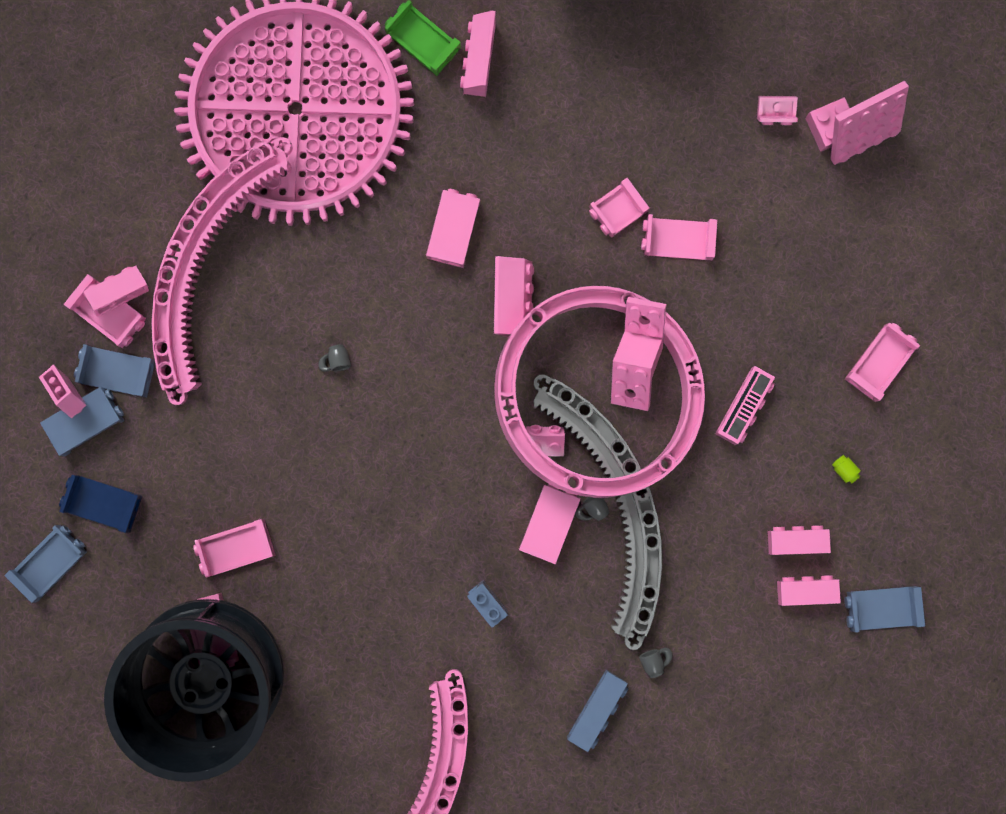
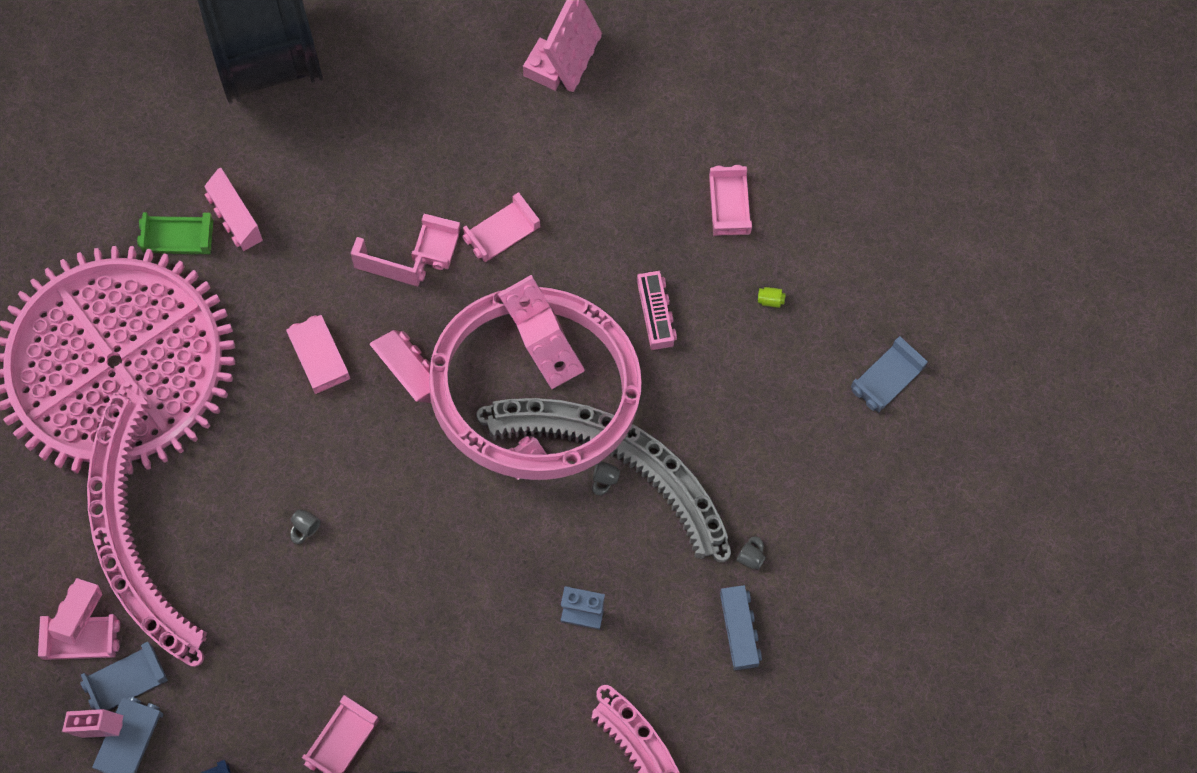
camera: 40 degrees left, 15 degrees down
(546, 173) = (386, 268): none -> bright pink panel
(549, 523) = (581, 515): bright pink panel -> none
(777, 109) = (497, 83): bright pink bracket -> none
(798, 540) = (781, 376): bright pink brick -> none
(808, 591) = (821, 407): bright pink brick -> none

